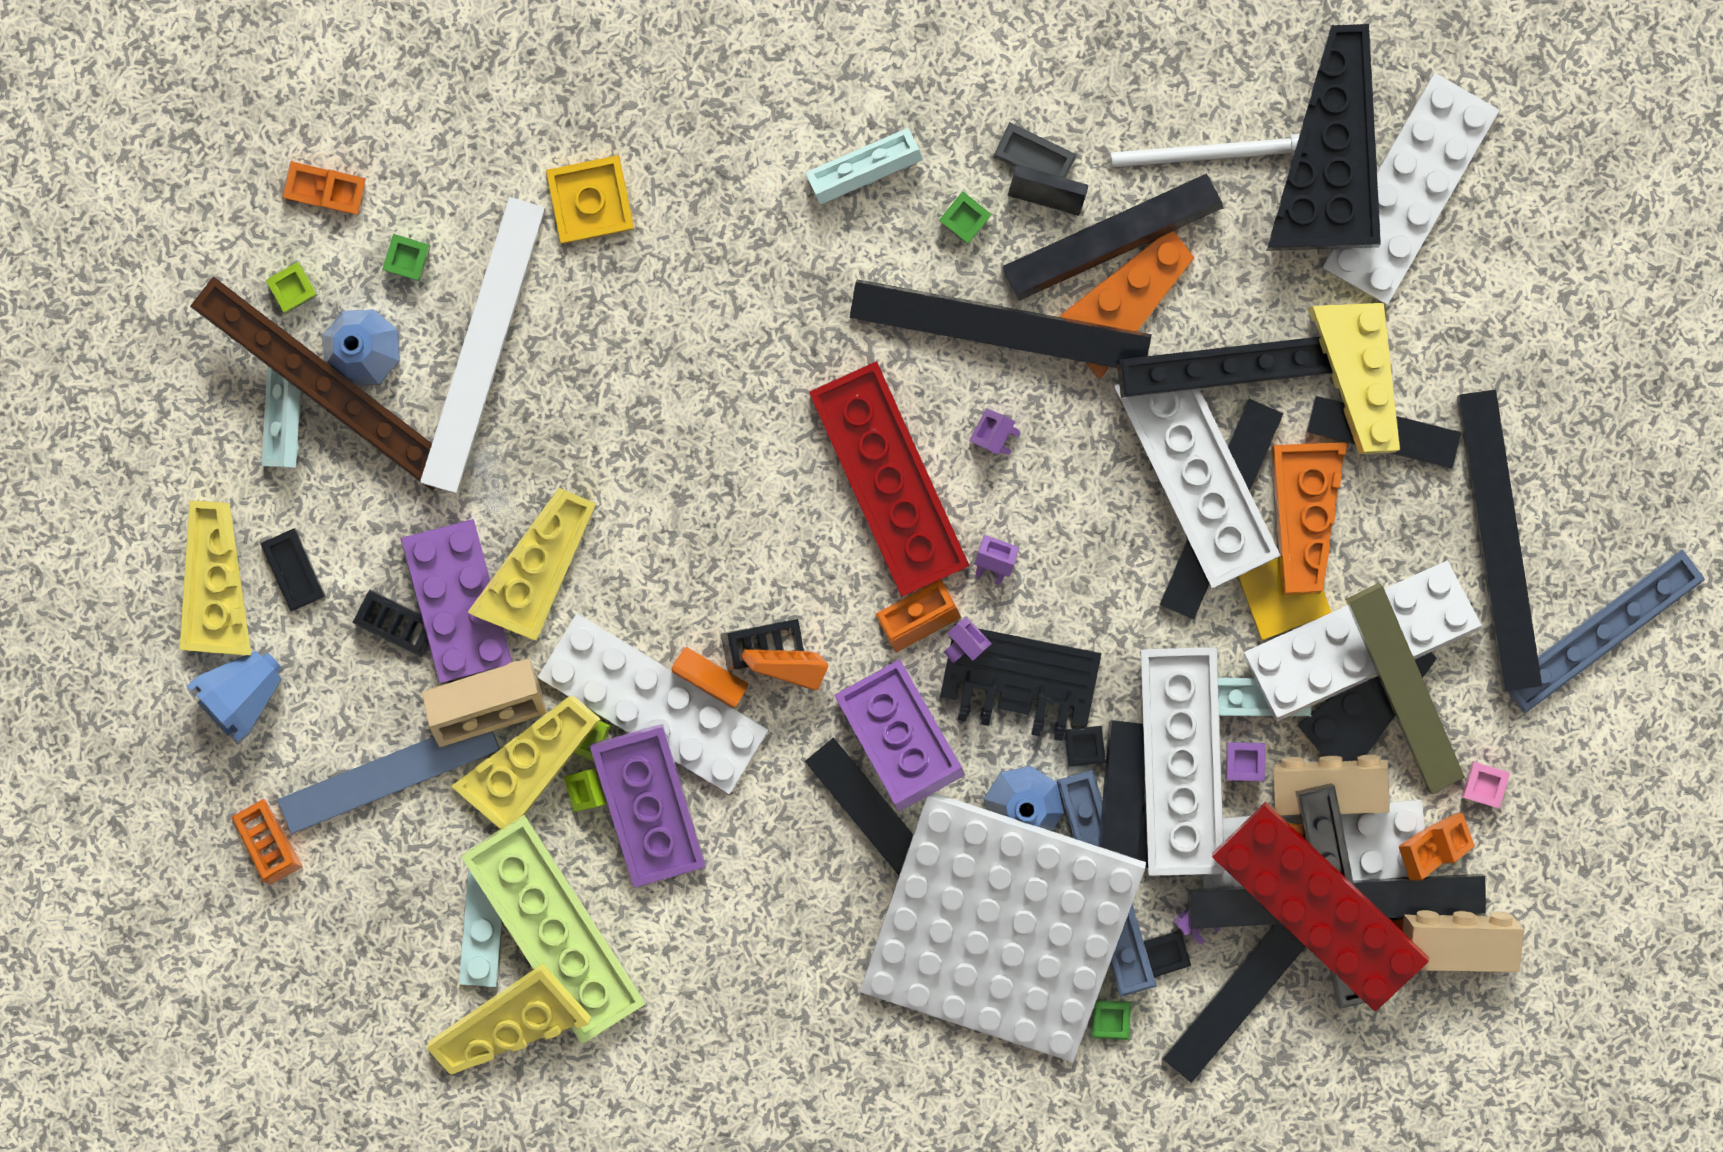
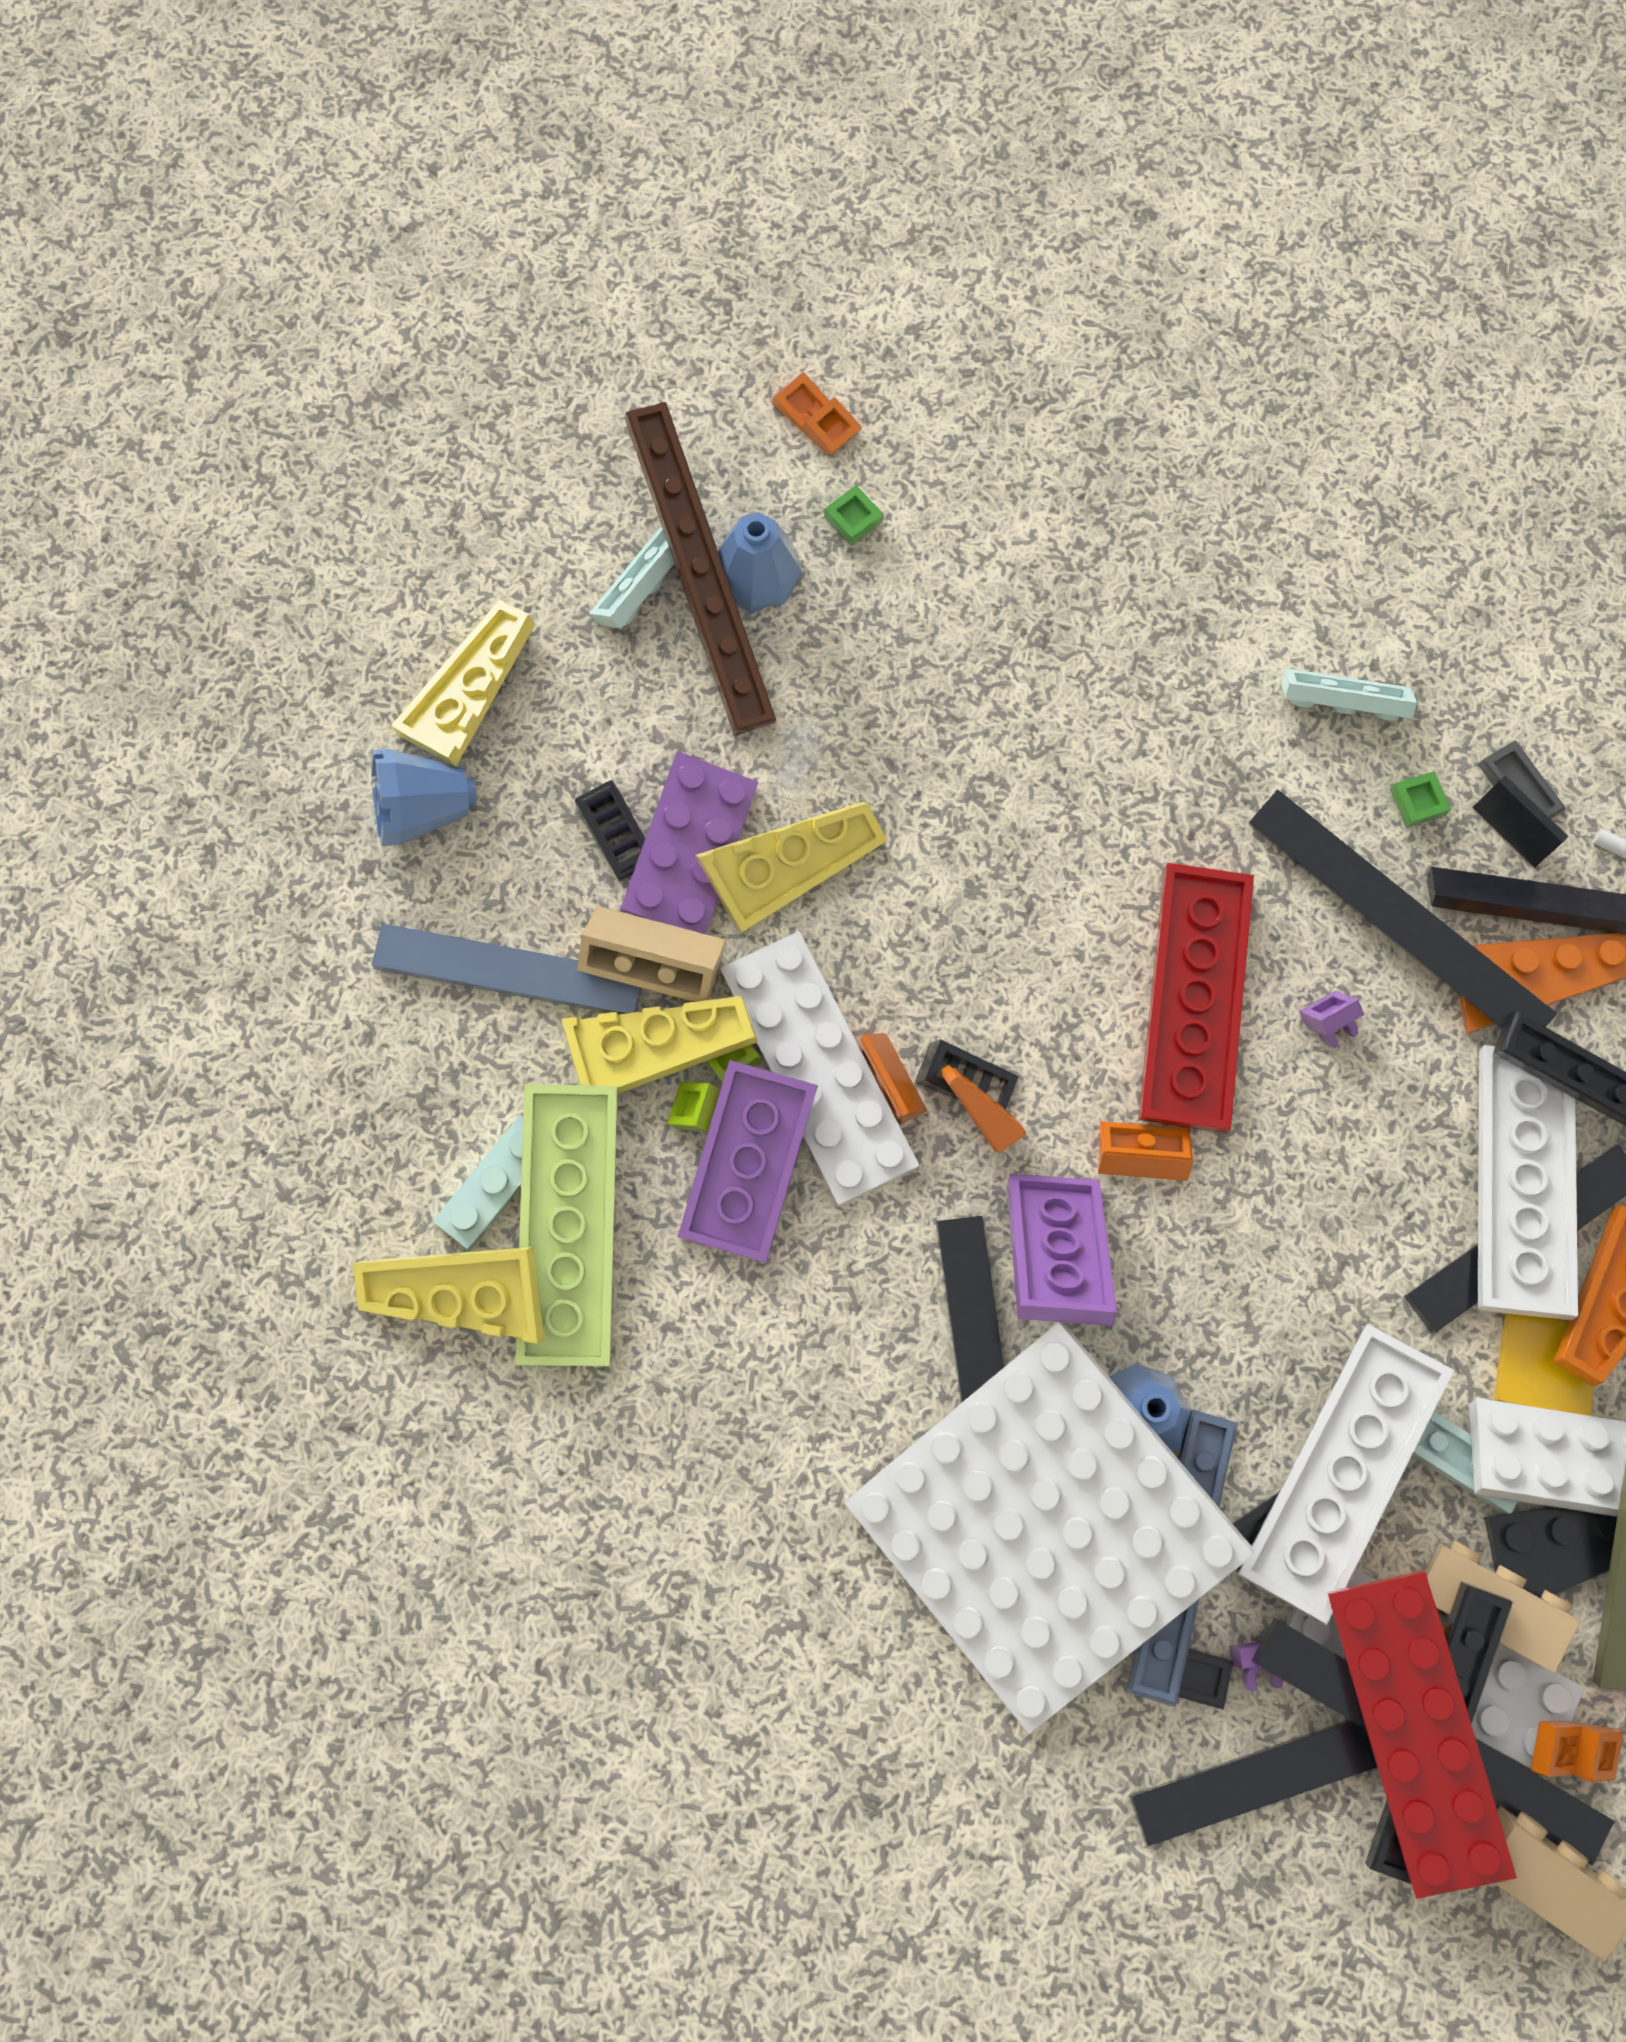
camera: 25 degrees right, 15 degrees down
(254, 848) = (341, 988): orange slope -> none
(291, 287) = (728, 477): lime plate -> none
(293, 569) = (551, 724): black tile -> none
(483, 345) = (871, 633): white tile -> none
(590, 199) = (1060, 570): yellow tile -> none
(967, 640) = (1184, 1200): medium lavender tile -> none
(996, 557) = (1262, 1137): medium lavender tile -> none
(1023, 672) = (1217, 1274): black hinge -> none
(1084, 746) = (1241, 1393): black tile -> none
(1111, 1019) = (1098, 1714): bright green tile -> none
(1123, 788) = (1265, 1456): black tile -> none
(1245, 761) = (1412, 1517): medium lavender tile -> none

